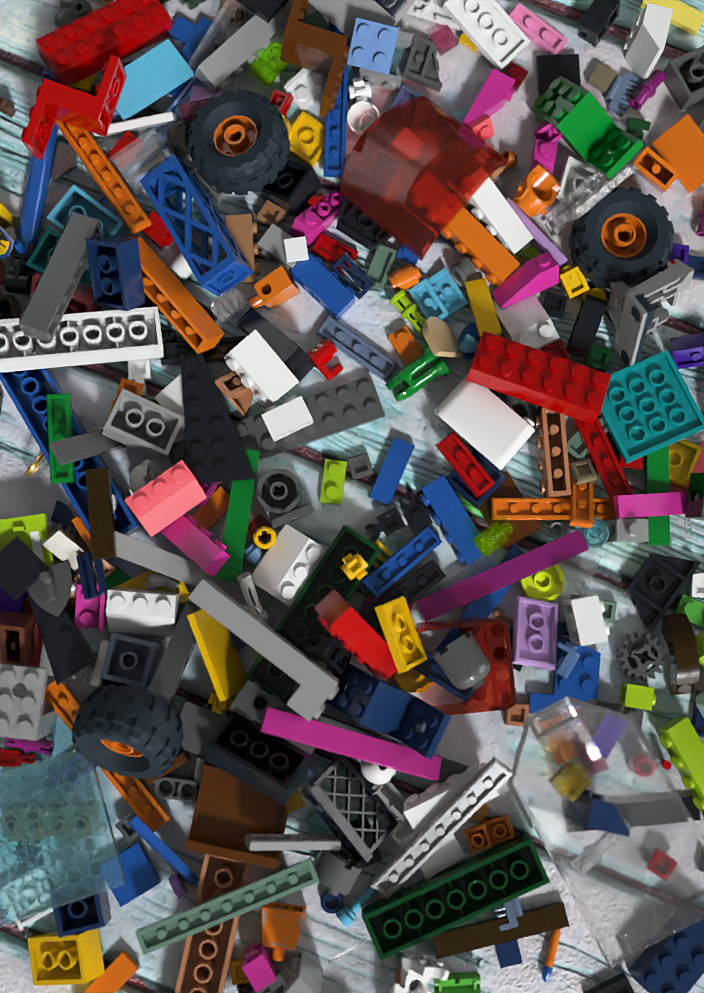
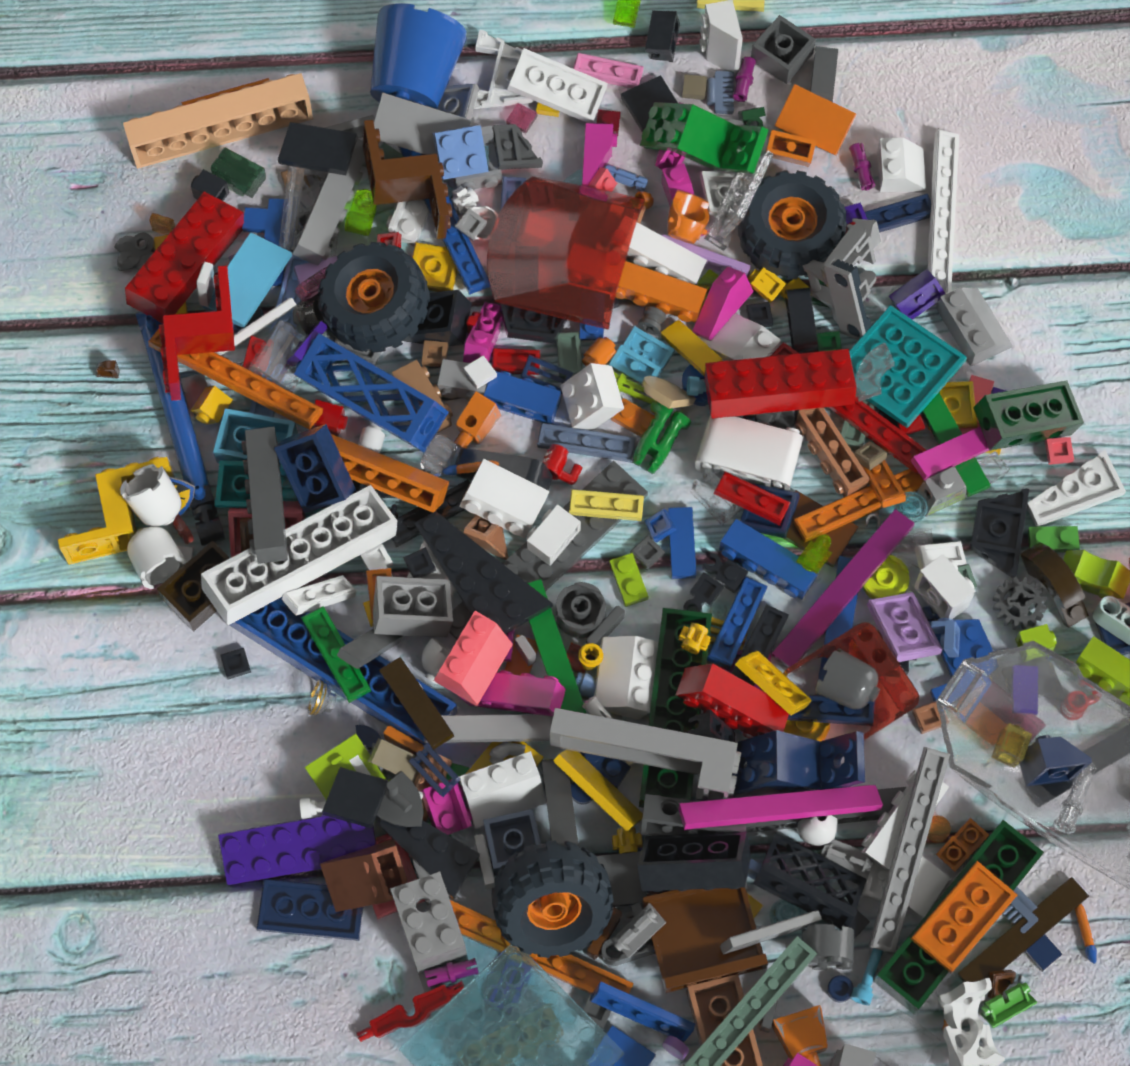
camera: 25 degrees left, 15 degrees down
(68, 175) = (211, 405): none -> yellow brick
(75, 380) = (319, 595): none -> white tile
(97, 62) = (205, 284): none -> white tile
(168, 391) = (419, 563): none -> black tile
(178, 151) = (302, 349): none -> dark purple tile
(188, 786) = (638, 930): none -> light grey hinge
(218, 505) = (525, 650): none -> light grey tile
(235, 324) = (464, 468): none -> orange piece
(344, 412) = (606, 505): none -> light yellow tile
(352, 115) = (471, 224): none -> light grey tile
(377, 313) = (592, 396): none -> white brick
(381, 449) = (660, 525): none -> blue tile
(456, 905) = (964, 917): none -> orange tile
(460, 959) = (1000, 981): none -> reddish brown tile
(505, 133) = (628, 178): none -> medium blue axle
(596, 584) = (928, 553): none -> white tile
(620, 401) = (871, 371): none -> clear tile

